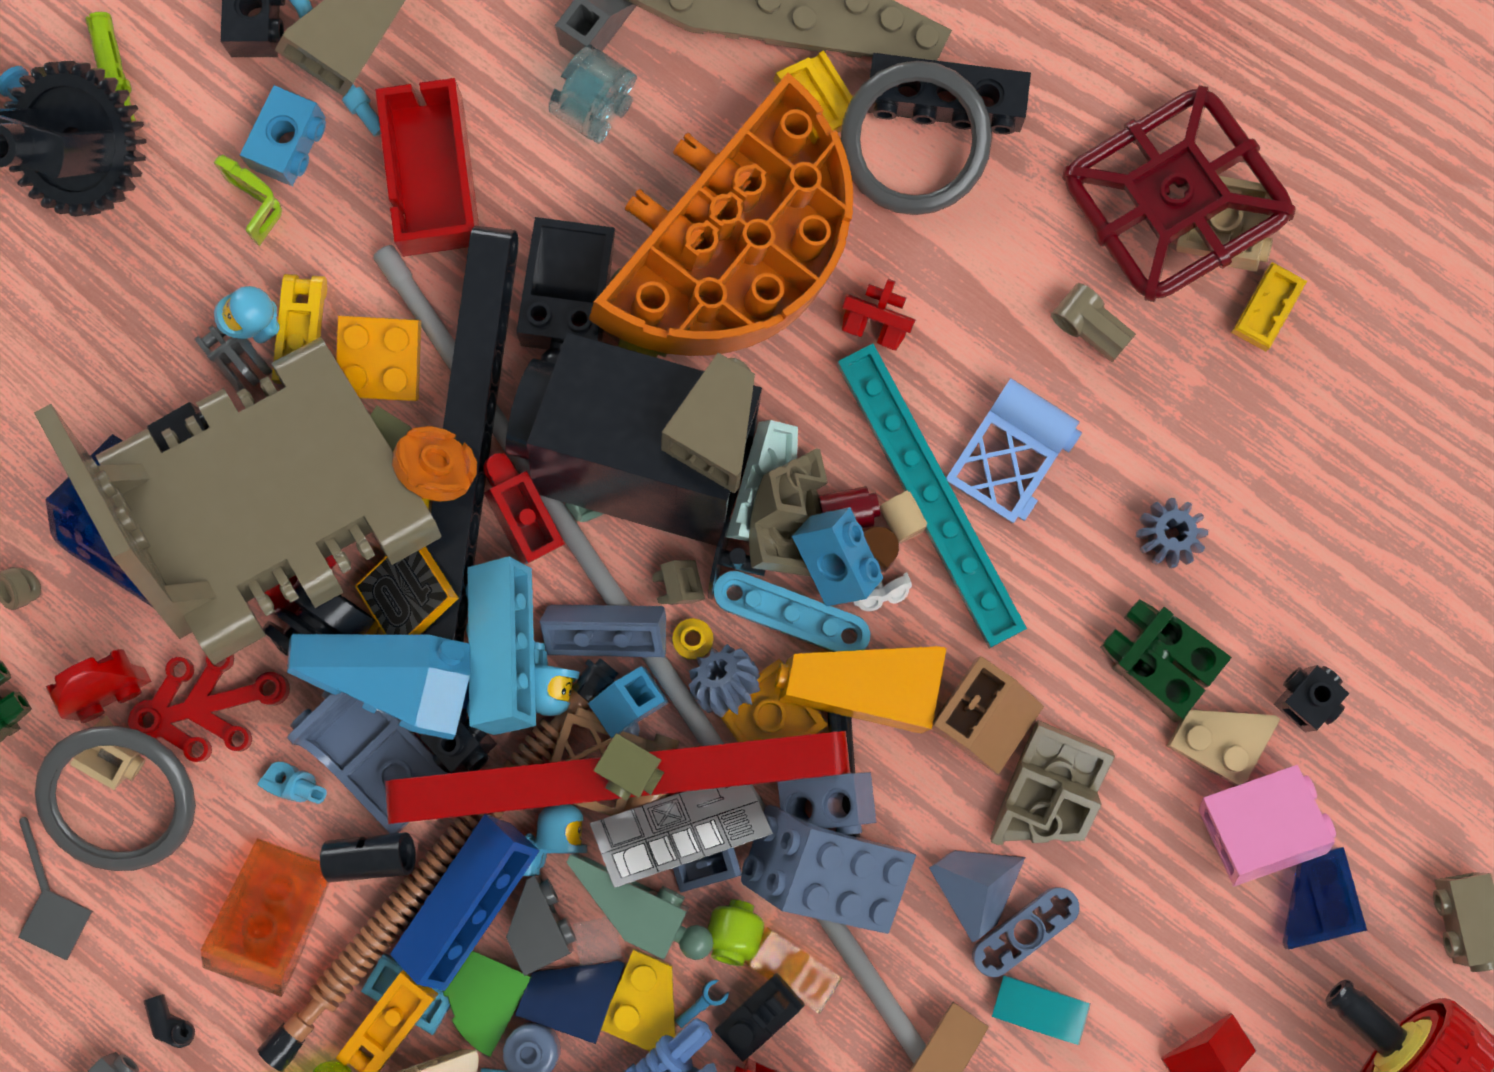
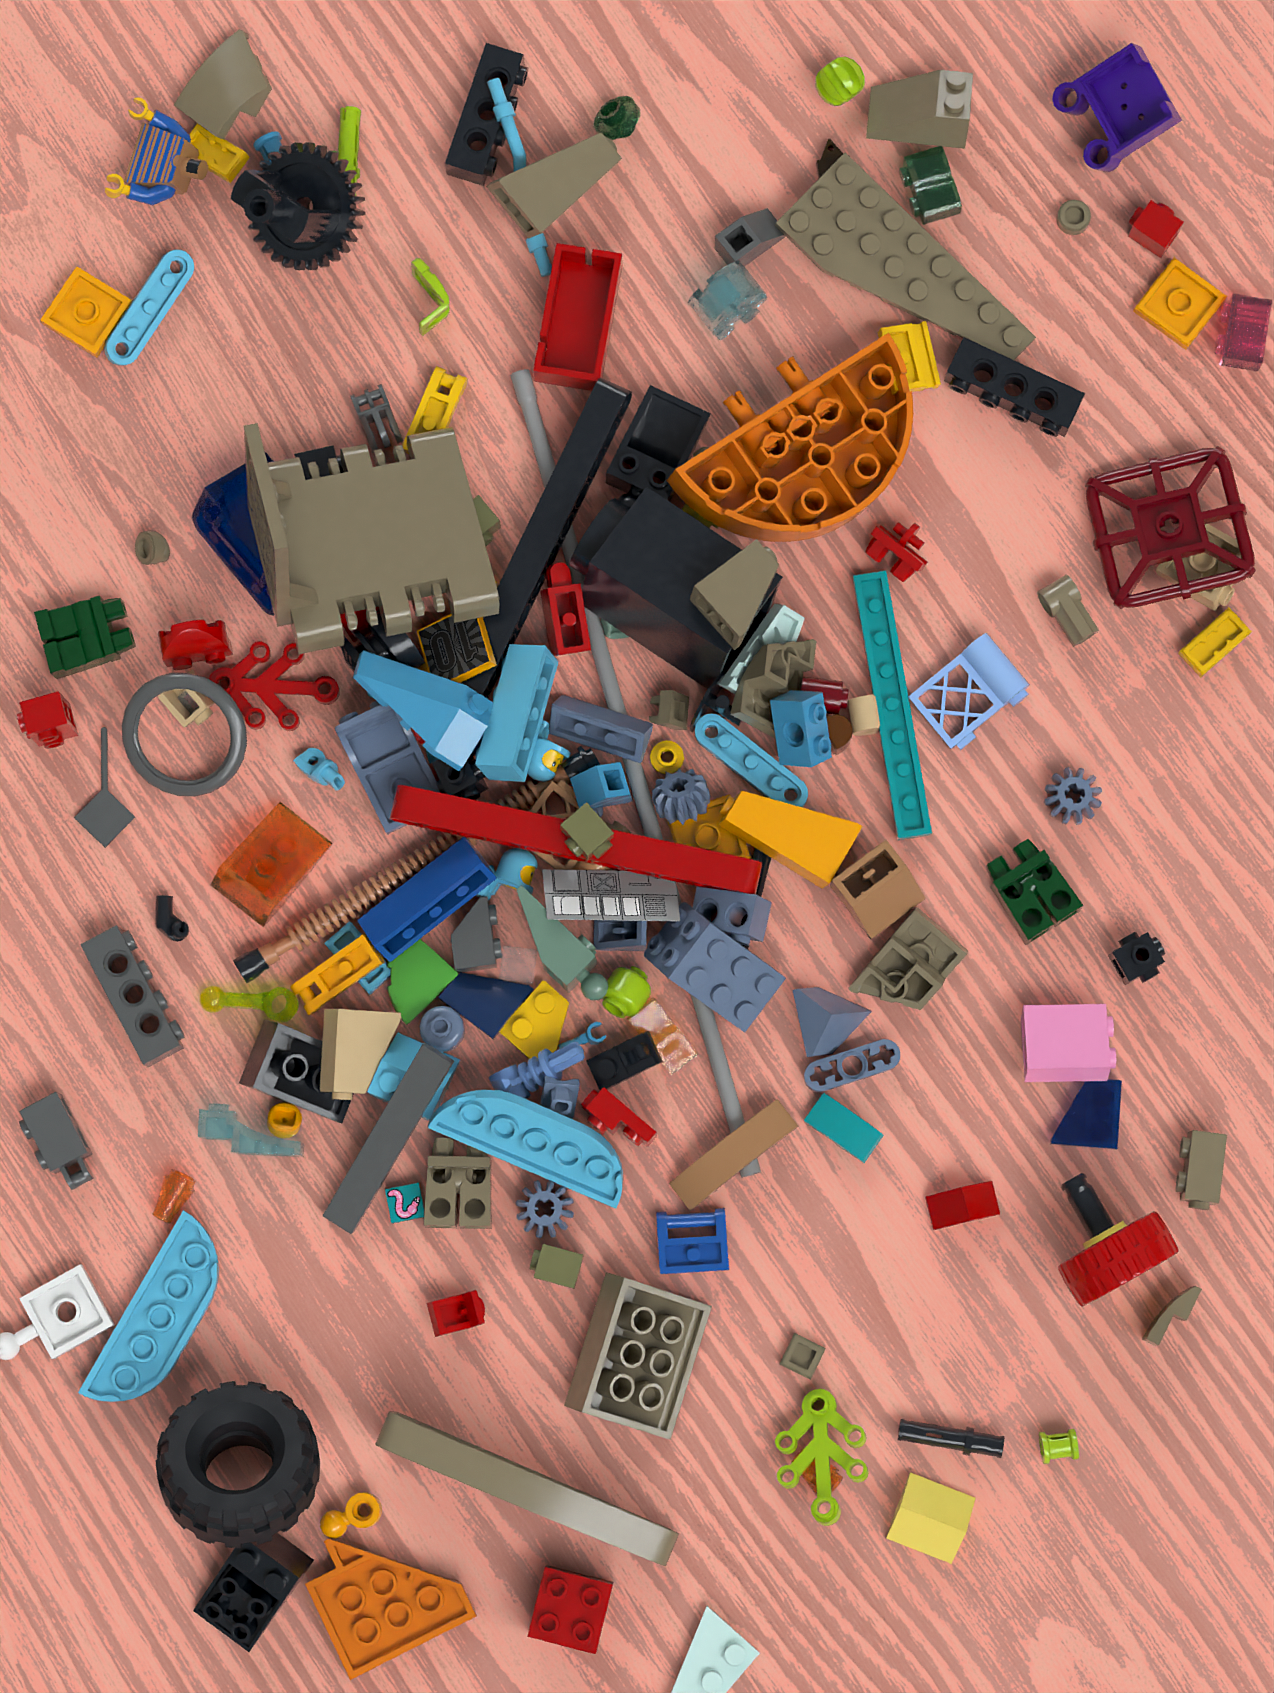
camera: 20 degrees right, 0 degrees up
(247, 314) = (399, 391): medium azure piece -> none
(283, 114) = (473, 236): dark azure brick -> none
(367, 857) = (362, 843): black pin -> none
(380, 356) = (493, 456): light orange plate -> none
(434, 464) = (511, 555): orange tile -> none
(893, 592) = (837, 771): white piece -> none
(980, 145) = (1029, 412): dark grey wedge -> none
(1224, 741) = (1058, 971): tan wing -> none

